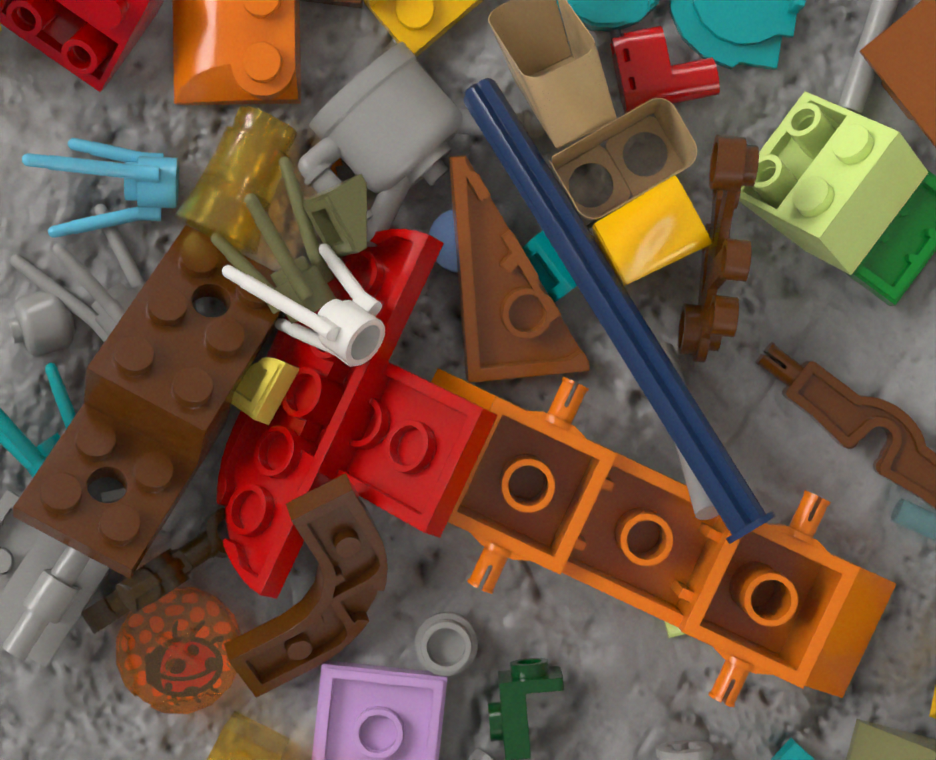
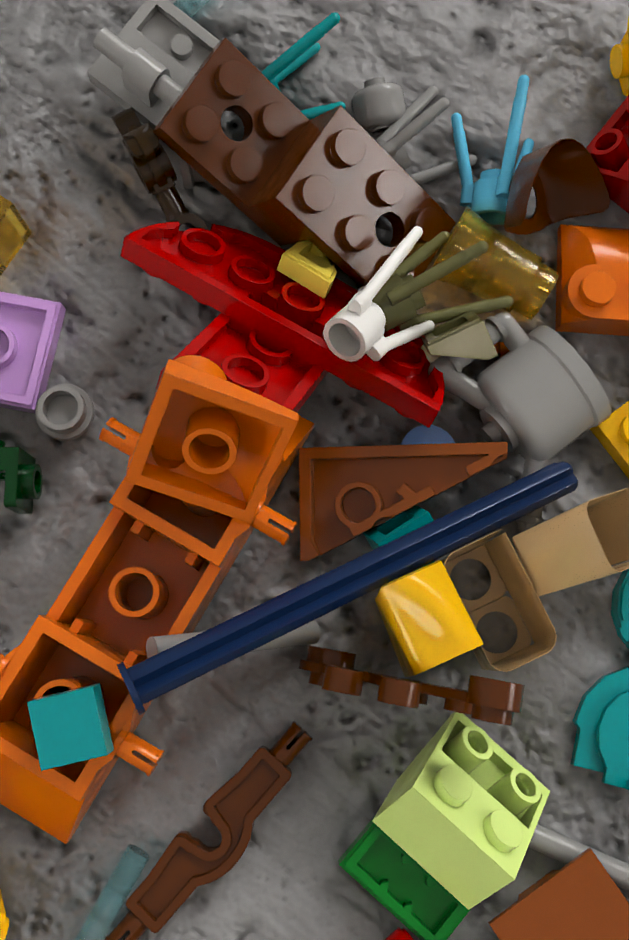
camera: 90 degrees right, 10 degrees down
(134, 107) = (564, 187): none -> reddish brown piece
(176, 651) = (89, 190): clear orange tile -> none
(335, 607) = (108, 315): reddish brown plate -> none
(498, 474) = (210, 439): none -> orange slope
(646, 72) = (579, 636): red piece -> none
(791, 583) = (70, 726): none -> teal tile

